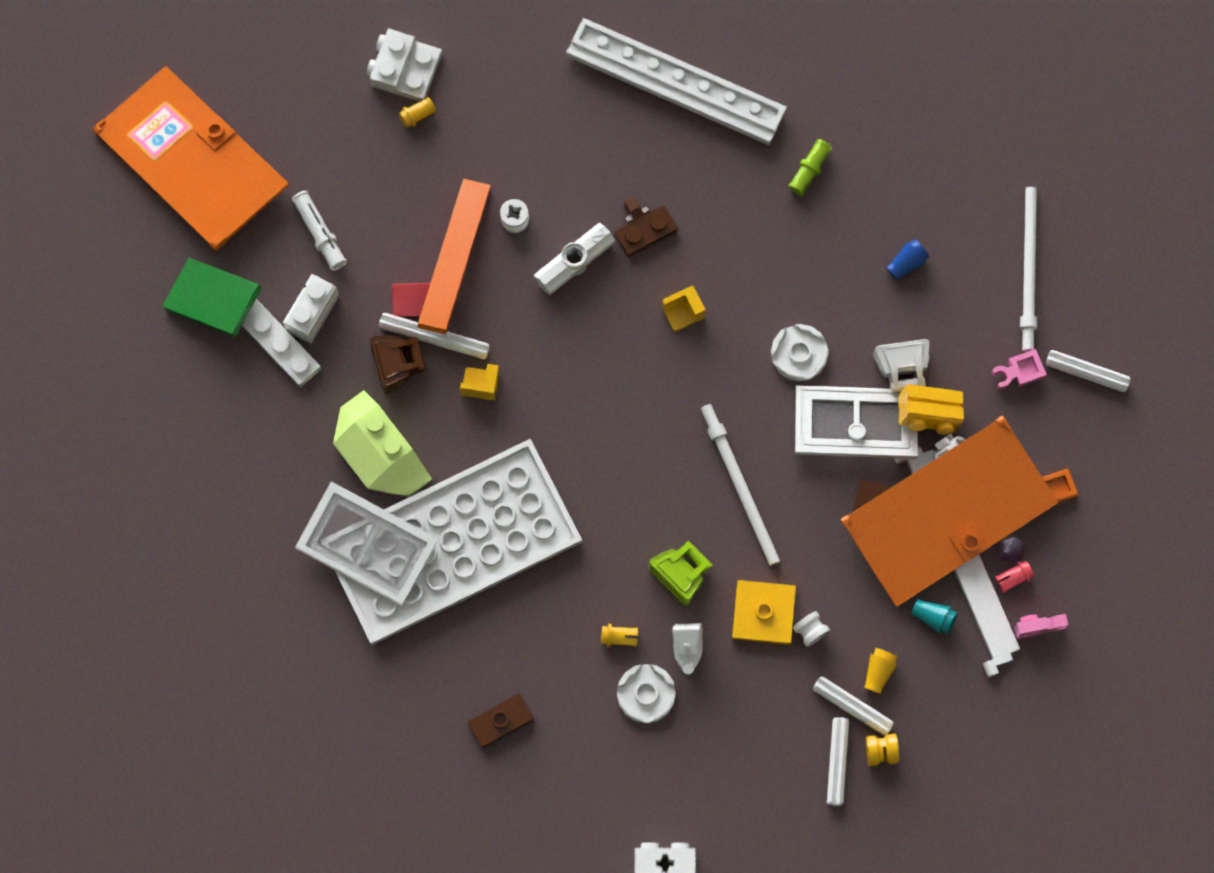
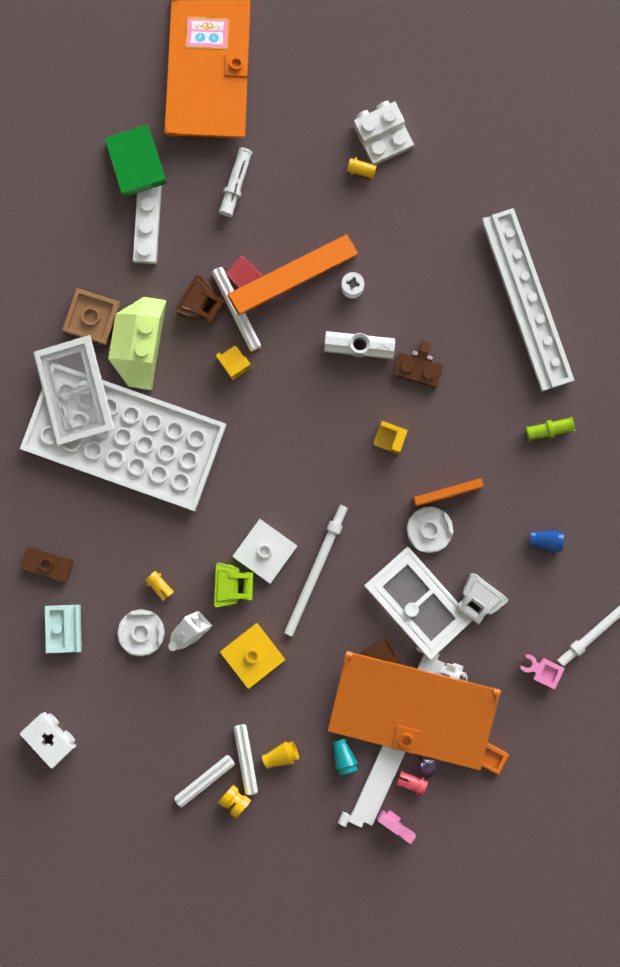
camera: 45 degrees right, 10 degrees up
(311, 309) = (182, 223): white brick -> none
(312, 467) = (91, 316): none -> medium nougat plate
(574, 759) = (63, 628): none -> light aqua plate
(679, 513) = (265, 551): none -> white plate
(781, 305) = (448, 492): none -> orange tile
(811, 629) = (267, 693): white wheel -> none
(930, 409) = (466, 640): yellow brick -> none
(1088, 371) = (581, 710): white axle -> none

